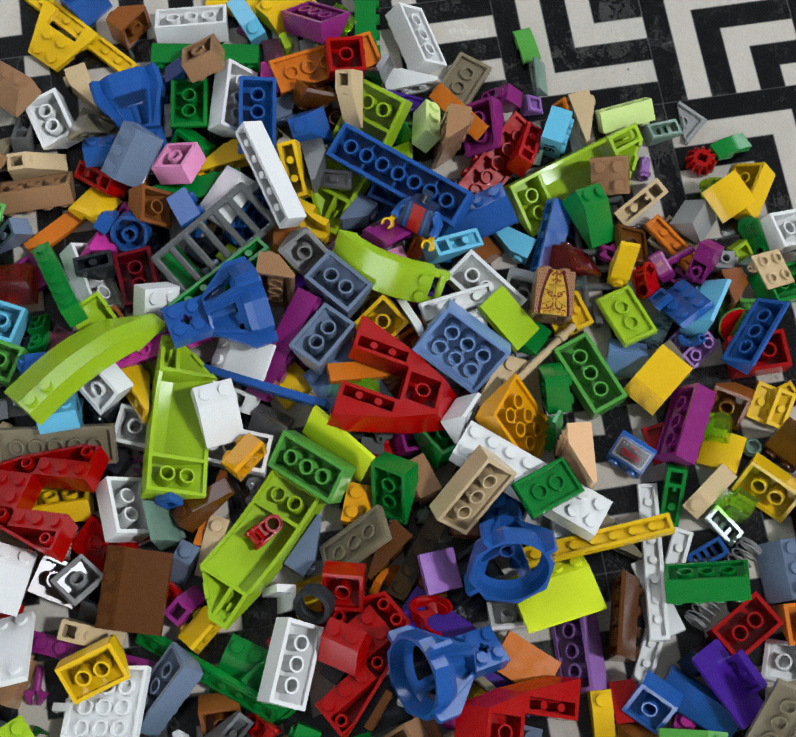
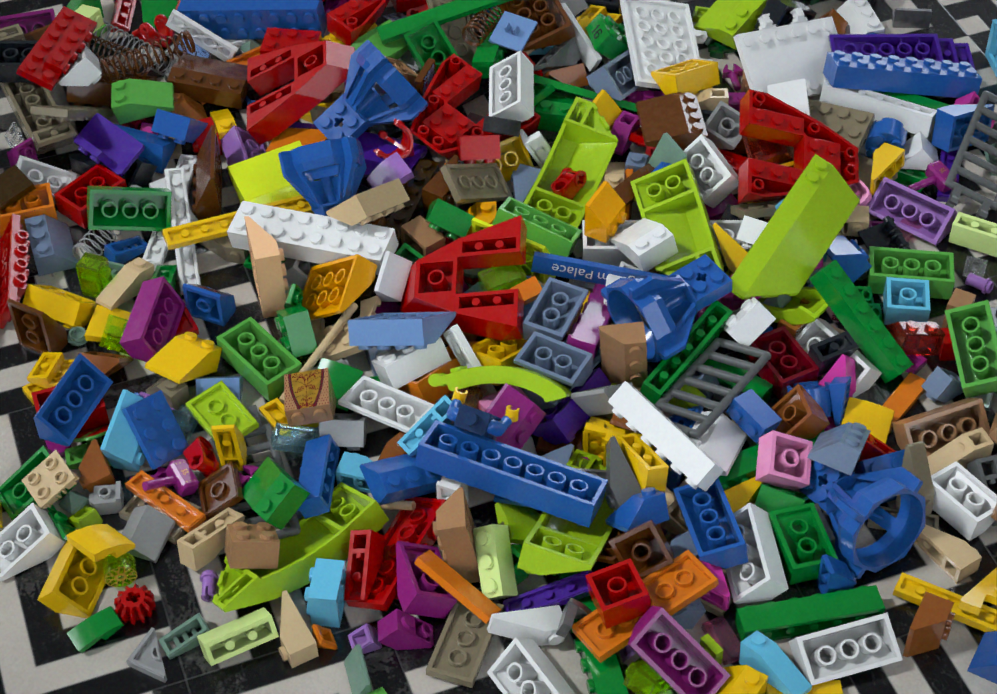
camera: 170 degrees right, 25 degrees down
(203, 58) = (803, 572): medium nougat brick -> none
(343, 646) = (464, 106): red slope -> none
(350, 95) = (598, 542): tan slope -> none
(466, 299) = (415, 376): white tile -> none
(508, 318) = (358, 370): lime tile -> none
(547, 488) = (294, 217): green tile -> none
(574, 259) = (287, 441): clear red slope -> none
(660, 299) = (182, 434): blue tile -> none
(704, 260) = (130, 474): magenta slope -> none

